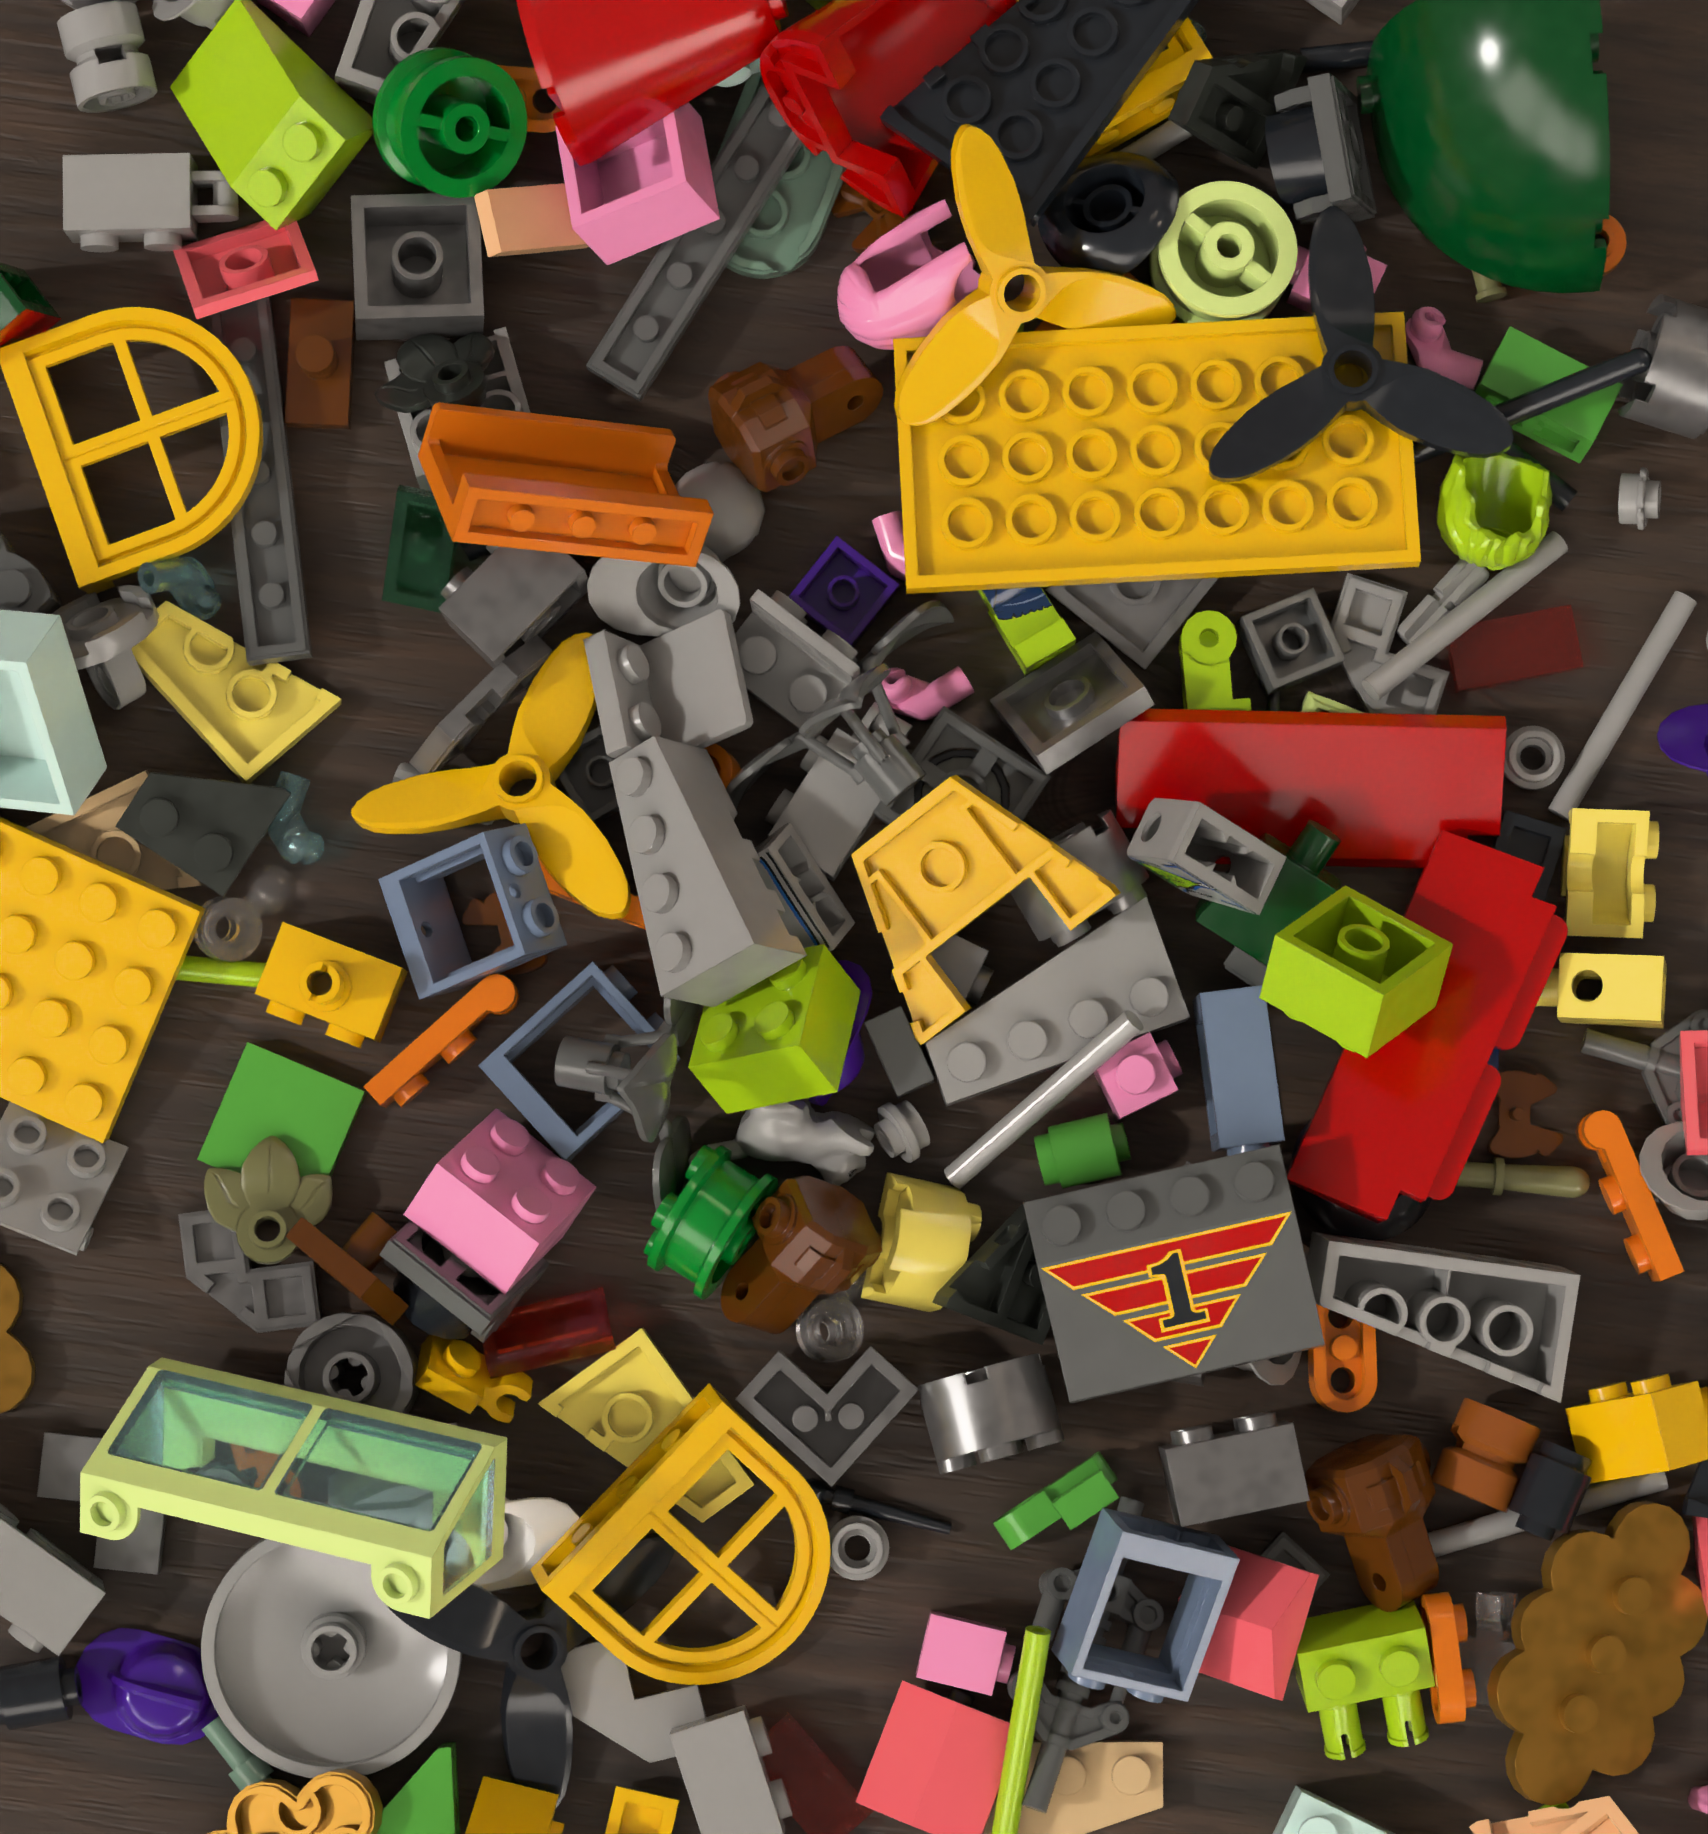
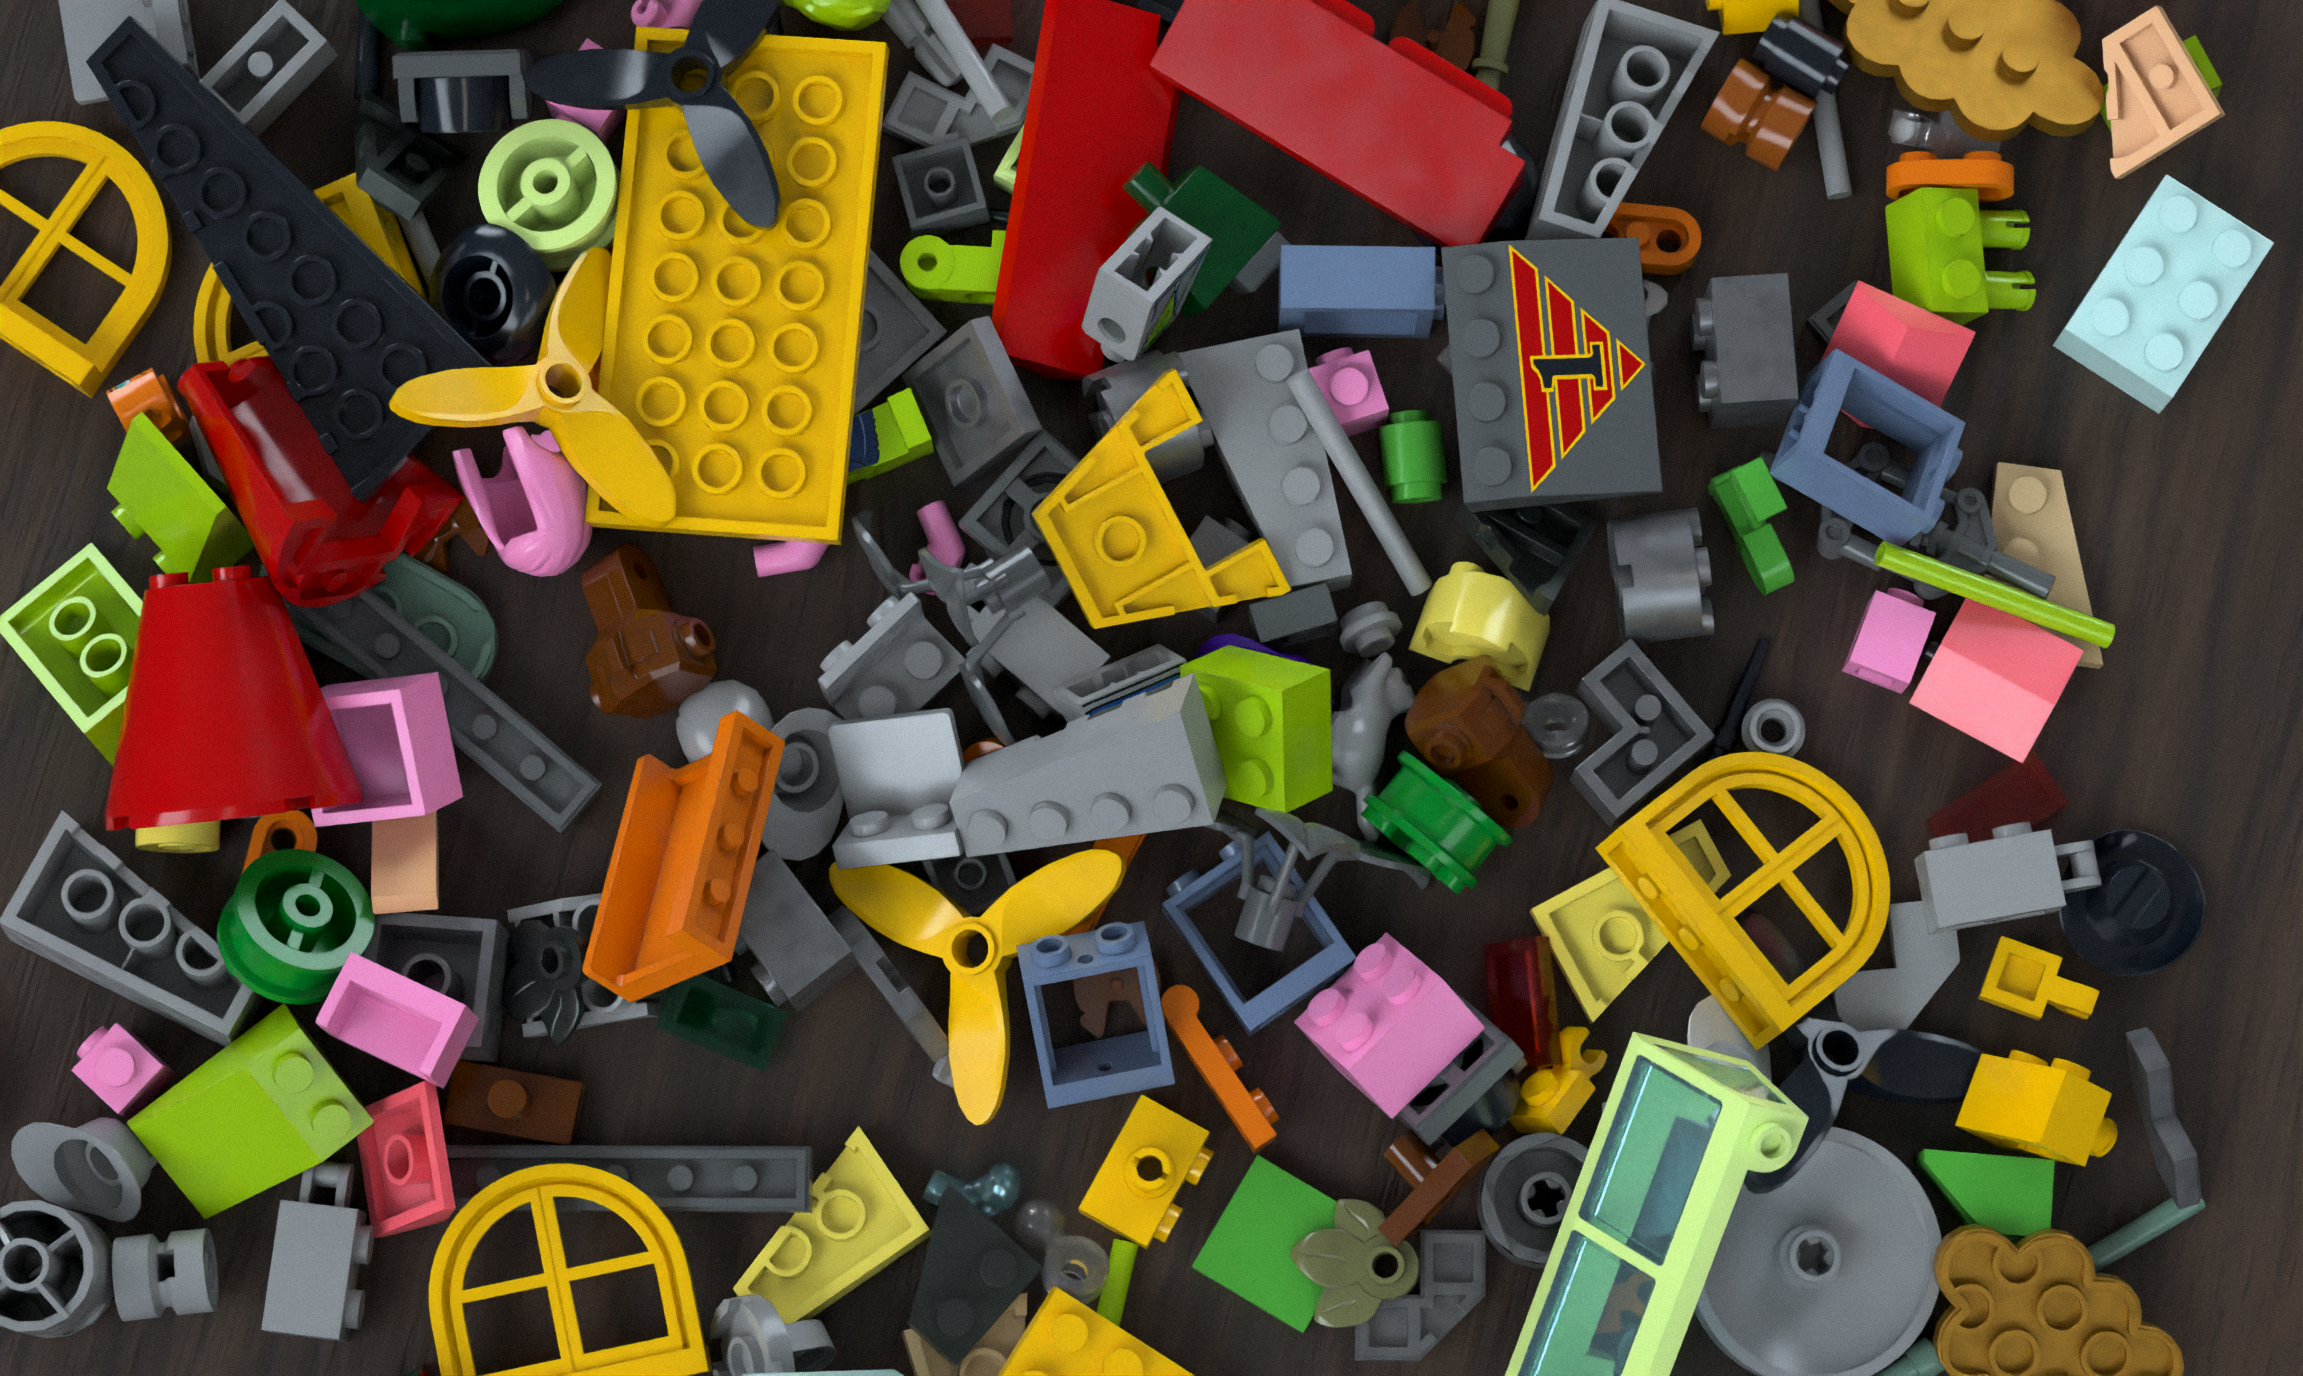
camera: 85 degrees left, 5 degrees down
(186, 582) = (719, 1264): clear light blue arm -> none
(368, 233) = (397, 1020): none -> bright pink panel
(844, 592) = (824, 610): dark purple piece -> none
(1355, 971) = (1281, 154): lime brick -> none
(1377, 1500) = (1790, 222): reddish brown piece -> none

